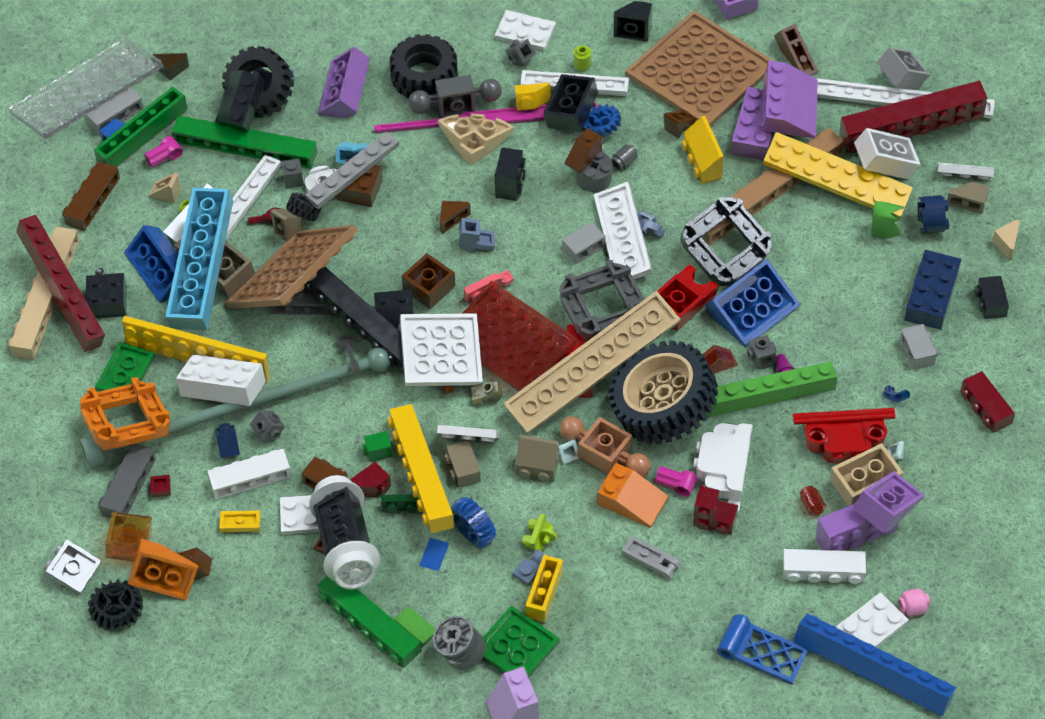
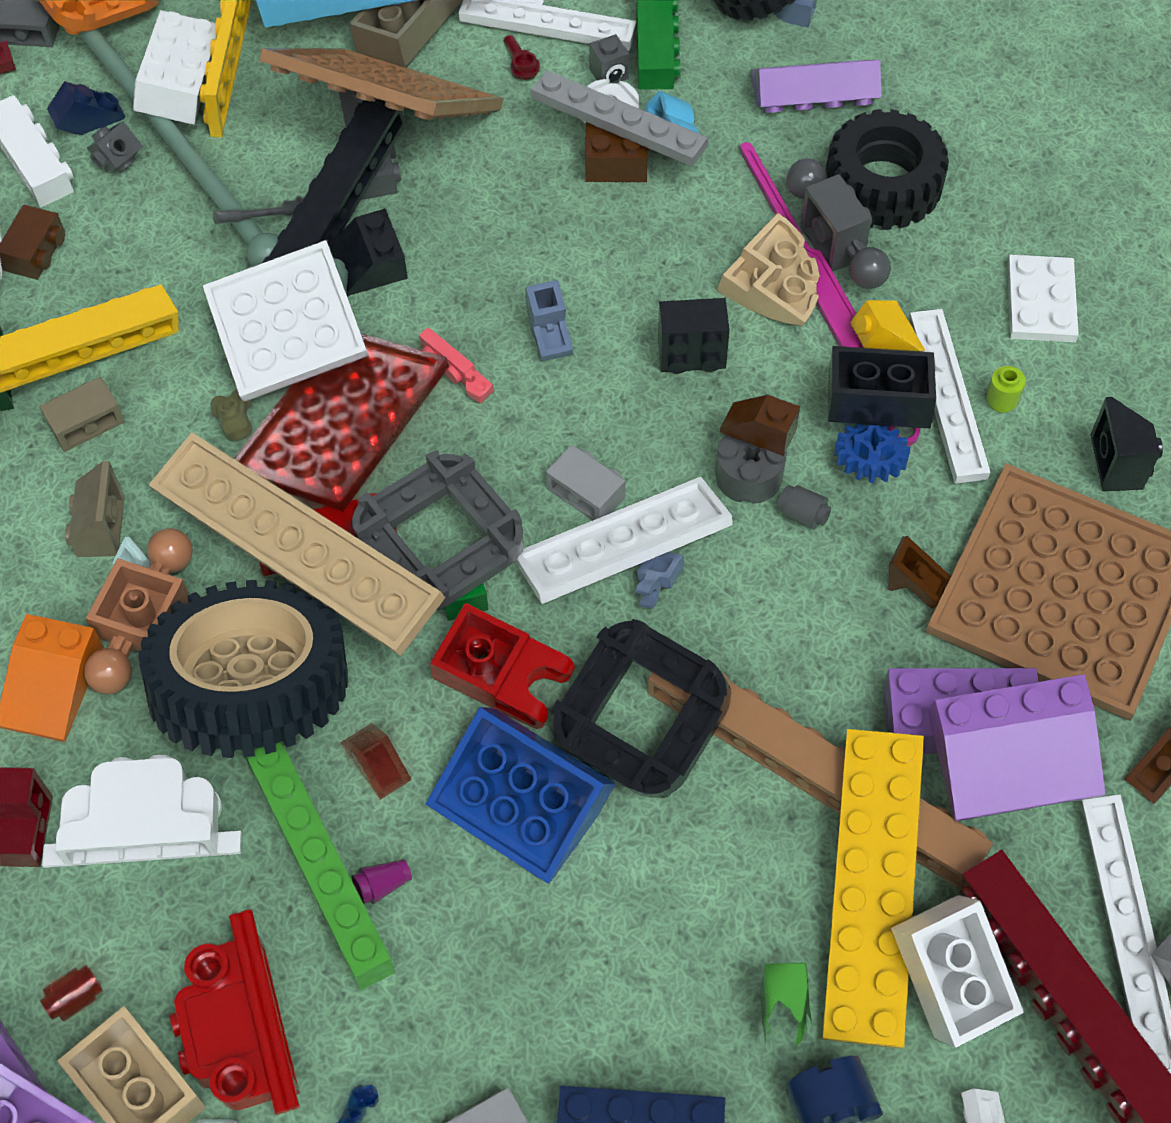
camera: 75 degrees right, 5 degrees up
(285, 223) = (505, 72): dark tan slope -> none
(301, 207) = (526, 79): black tyre -> none
(373, 480) = (31, 298): dark red slope -> none
(377, 446) = (97, 286): green brick -> none
(428, 280) = (437, 279): reddish brown brick -> none
(452, 213) = (590, 281): reddish brown slope -> none
(468, 433) = (135, 401): white plate -> none
(520, 52) = (967, 294): dark grey brick -> none
(681, 482) = (90, 742): dark pink piece -> none
(703, 151) = (853, 630): yellow slope -> none
(762, 351) = (403, 828): dark grey brick -> none

